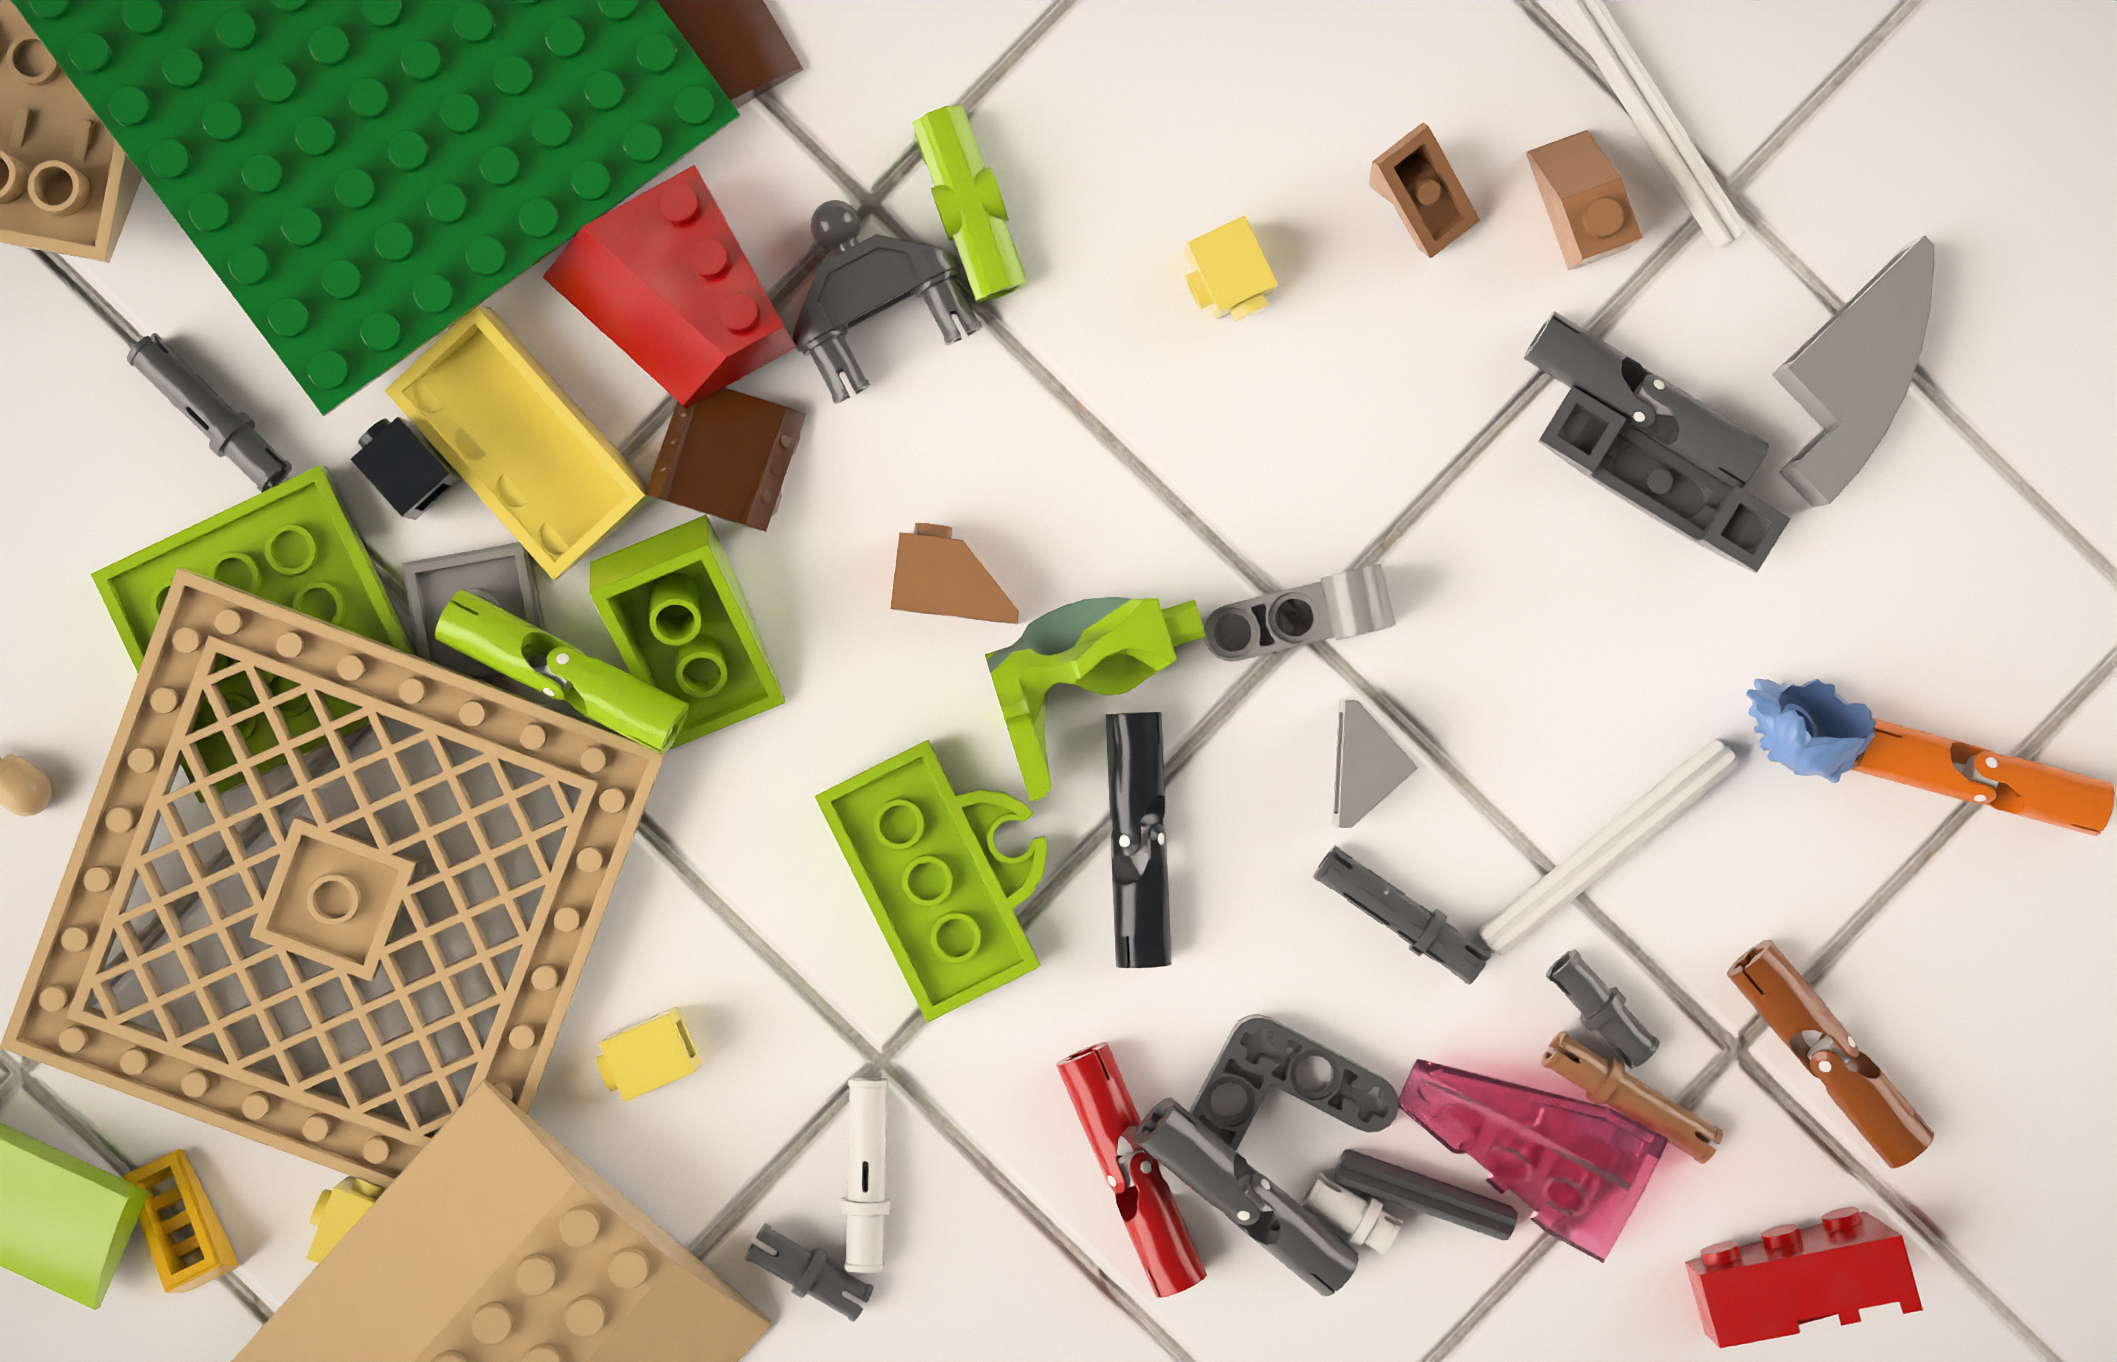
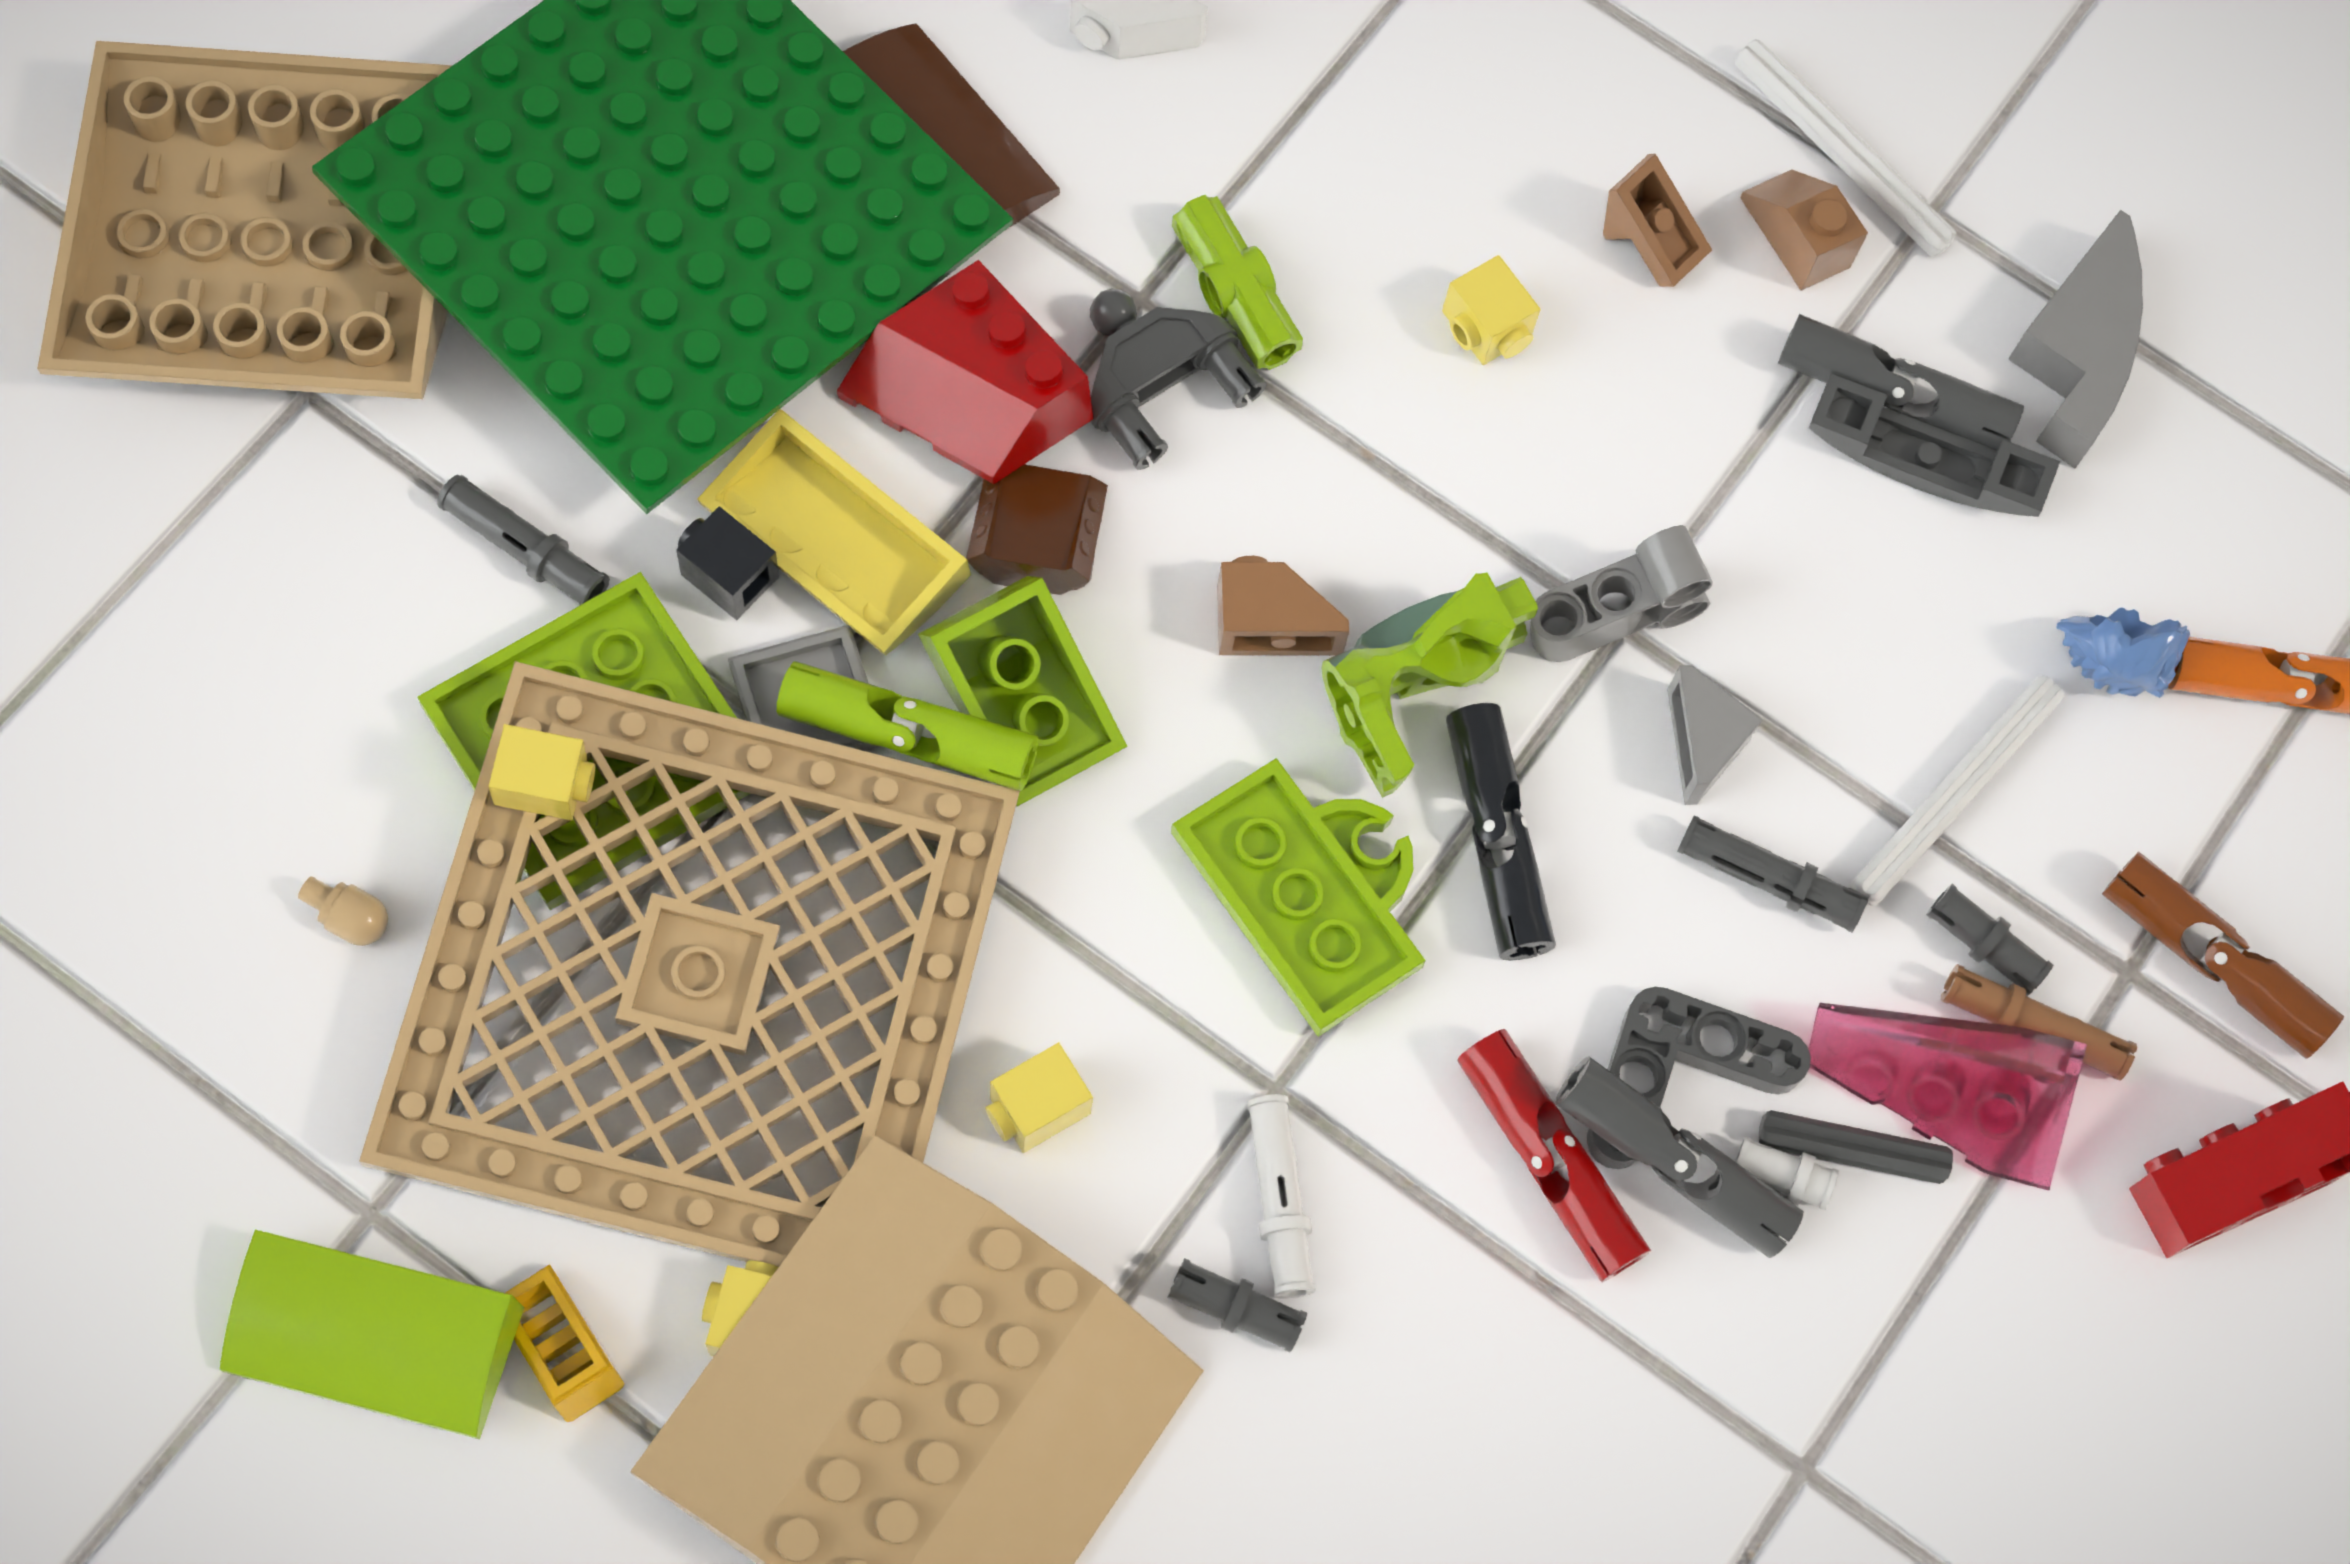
camera: 20 degrees left, 20 degrees down
(187, 699) = (540, 772): none -> light yellow brick

